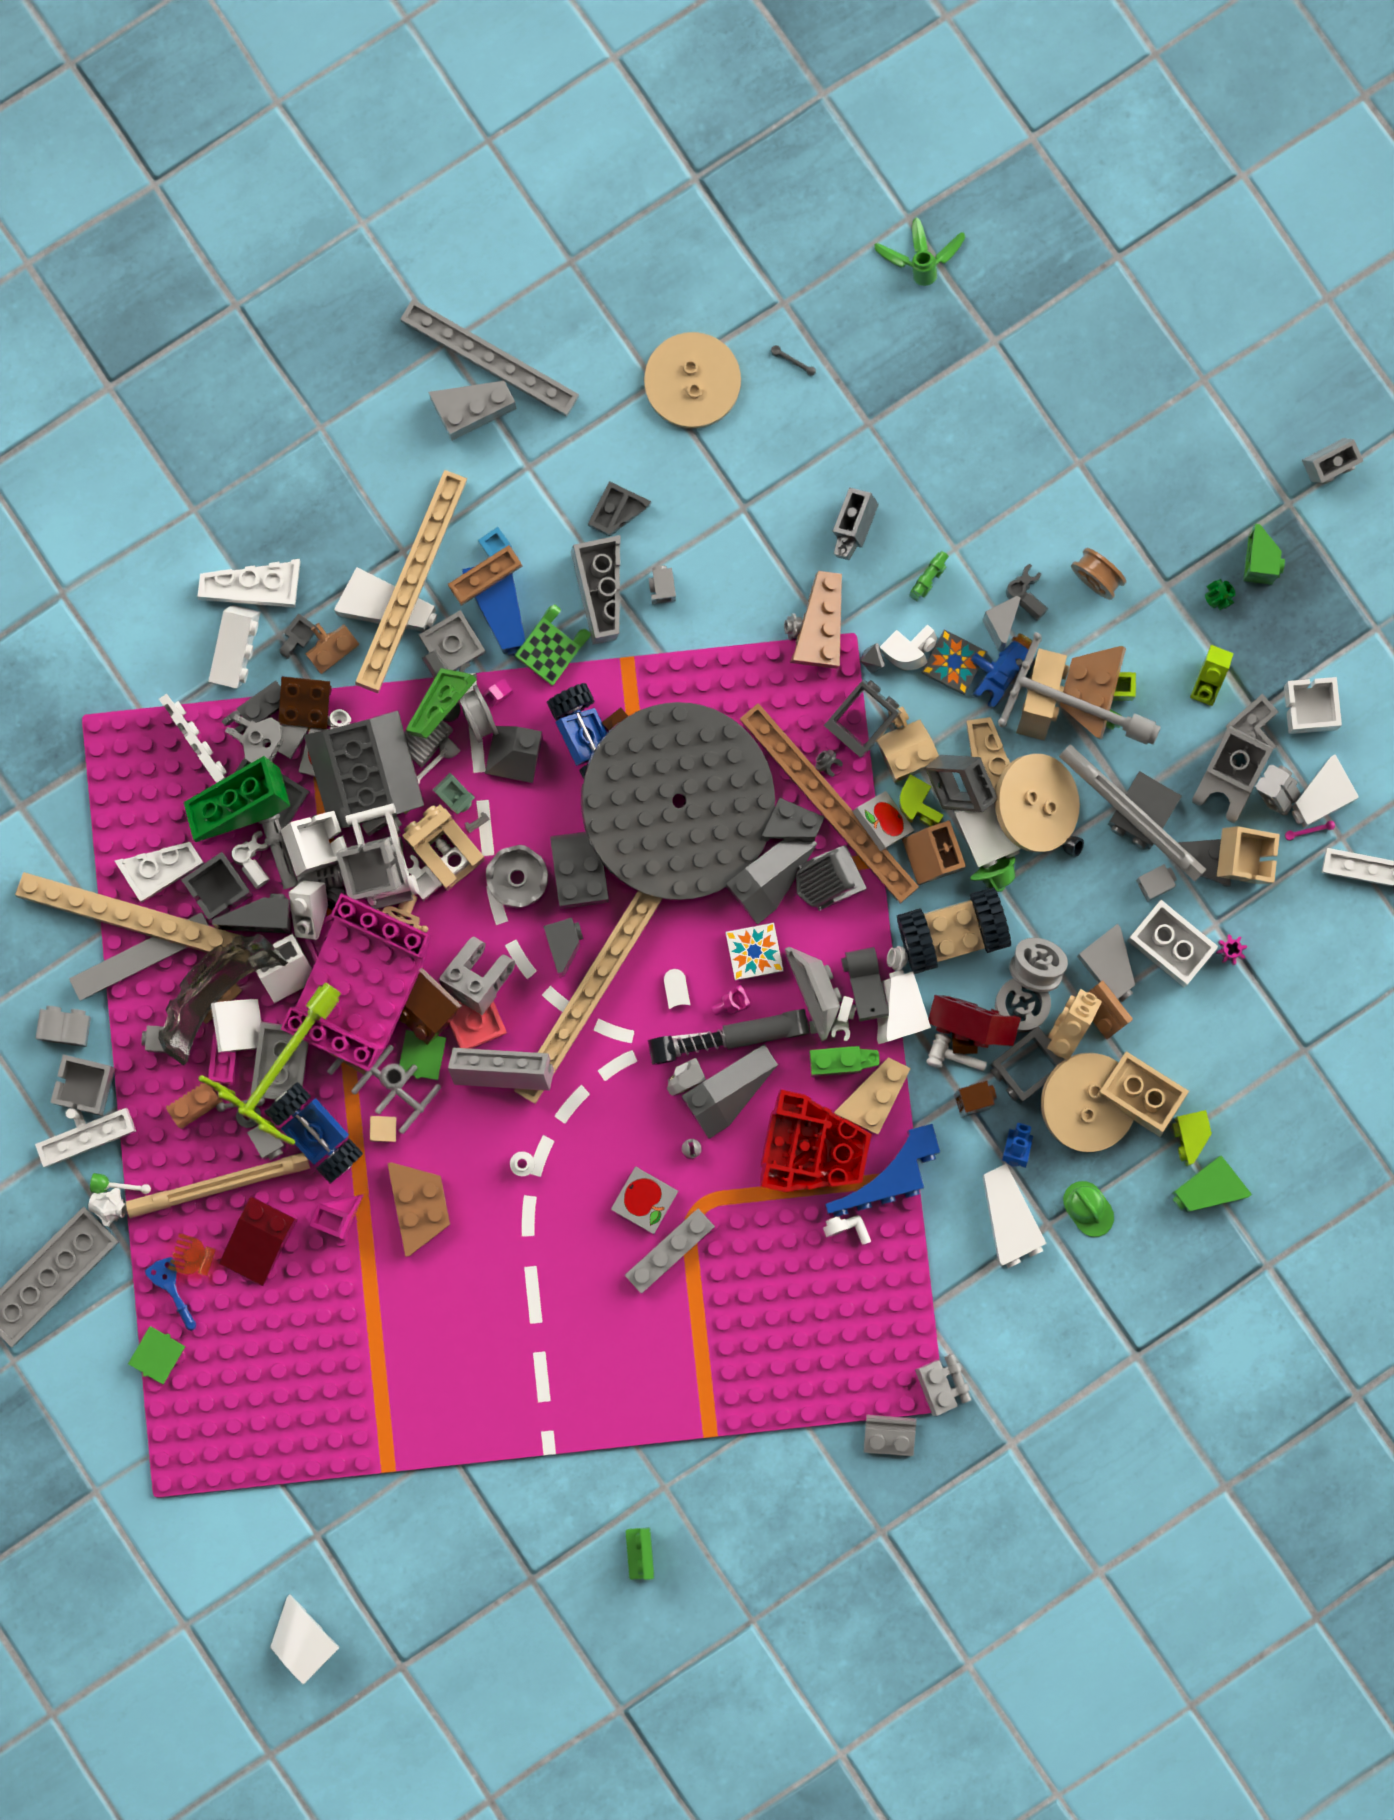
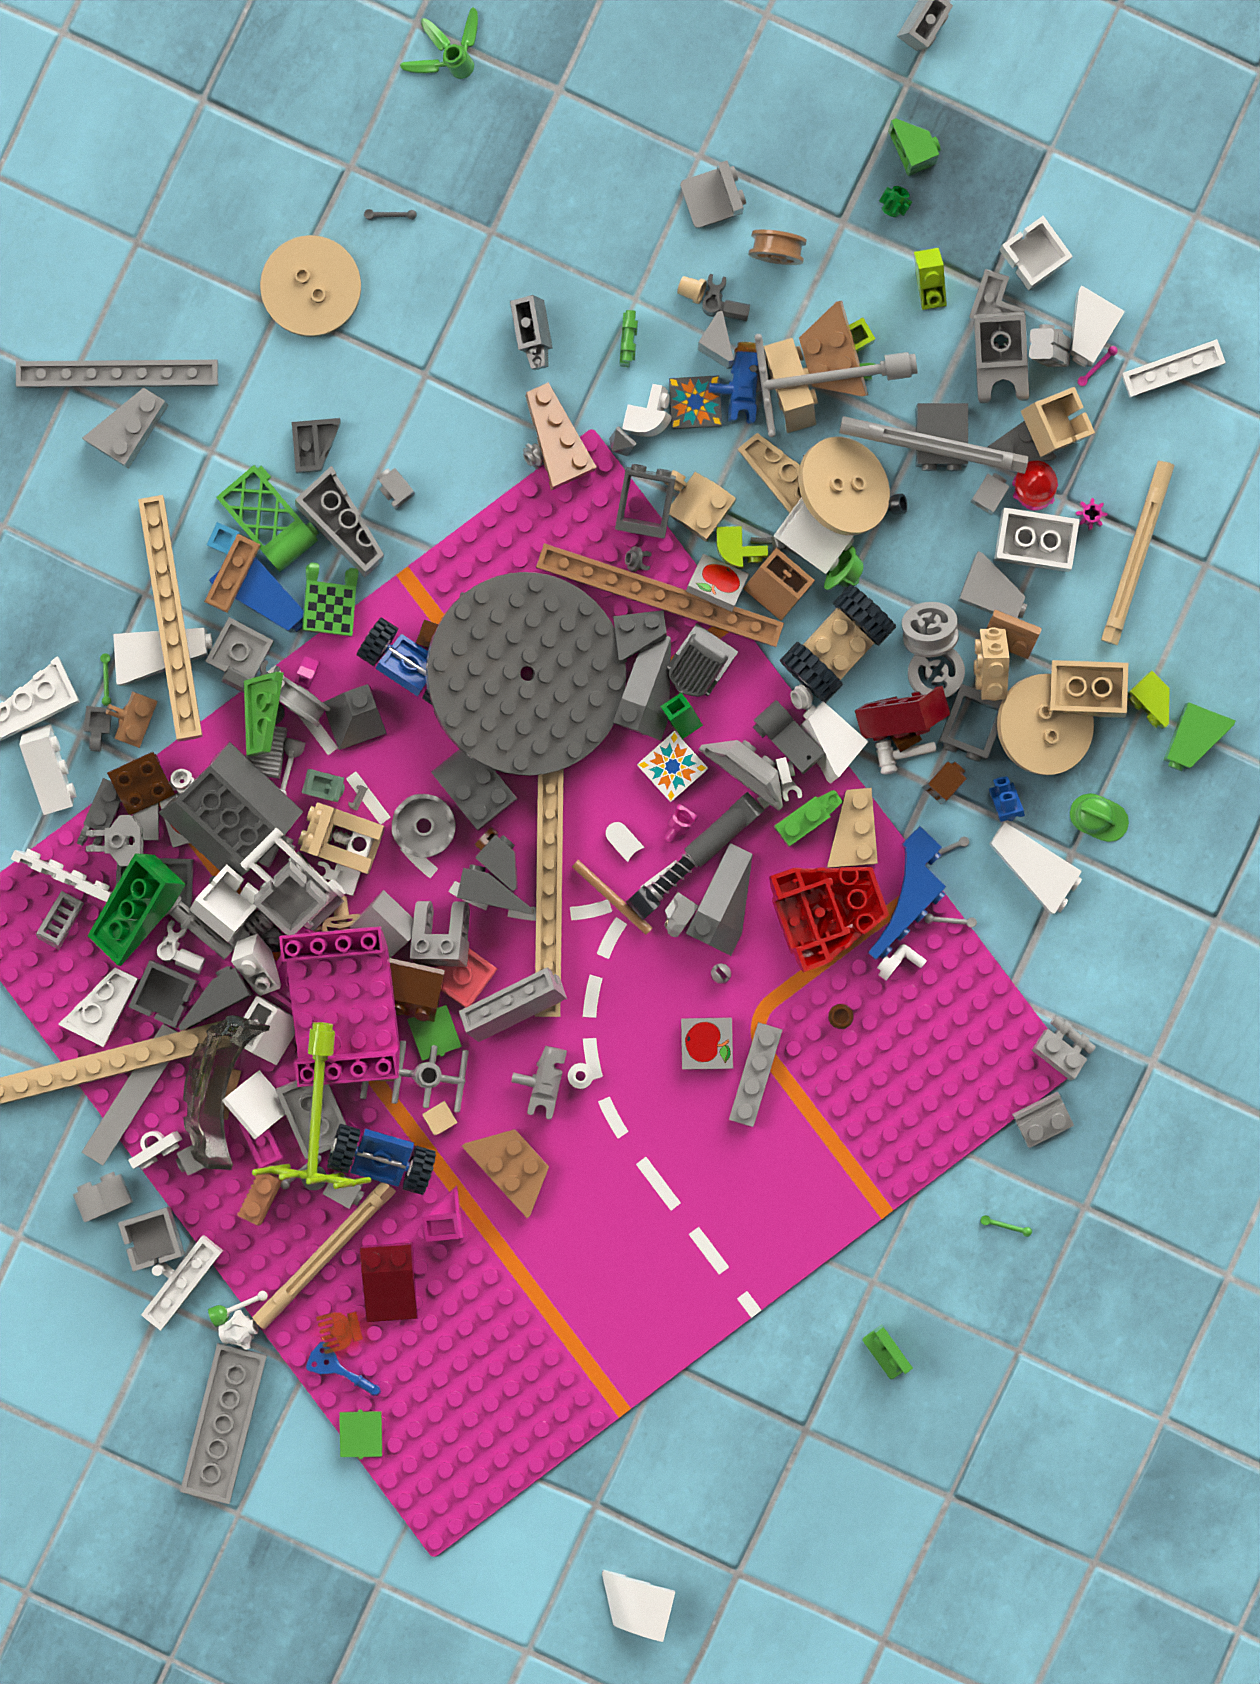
camera: 30 degrees left, 5 degrees up
(122, 1013) = (148, 1155): none -> white plate
(164, 769) = (67, 924): none -> light grey slope
(338, 584) = (105, 658): none -> bright green hinge
(443, 941) = (392, 918): none -> light grey slope
(489, 1151) = (545, 1082): none -> light grey piece
(534, 957) = (485, 889): none -> dark grey slope
(550, 578) = (291, 541): none -> bright green piece
(559, 917) = (487, 836): none -> reddish brown tile
(638, 1030) = (612, 897): none -> medium nougat bar
(770, 1245) = (840, 1016): none -> reddish brown plate
(787, 913) = (685, 719): none -> green brick
(819, 1522) = (985, 1220): none -> bright green hinge
(927, 1231) = (970, 922): none -> light grey hinge
(952, 817) = (775, 542): none -> dark grey hand
(962, 1160) = (963, 841): none -> light grey hinge
(979, 788) = (788, 507): dark grey window -> none
(1007, 567) = (692, 288): none -> tan piece
(1070, 501) = (713, 195): none -> light grey bracket
(1198, 898) = (1035, 487): none -> red hair
(1252, 1005) = (1137, 552): none -> tan piece

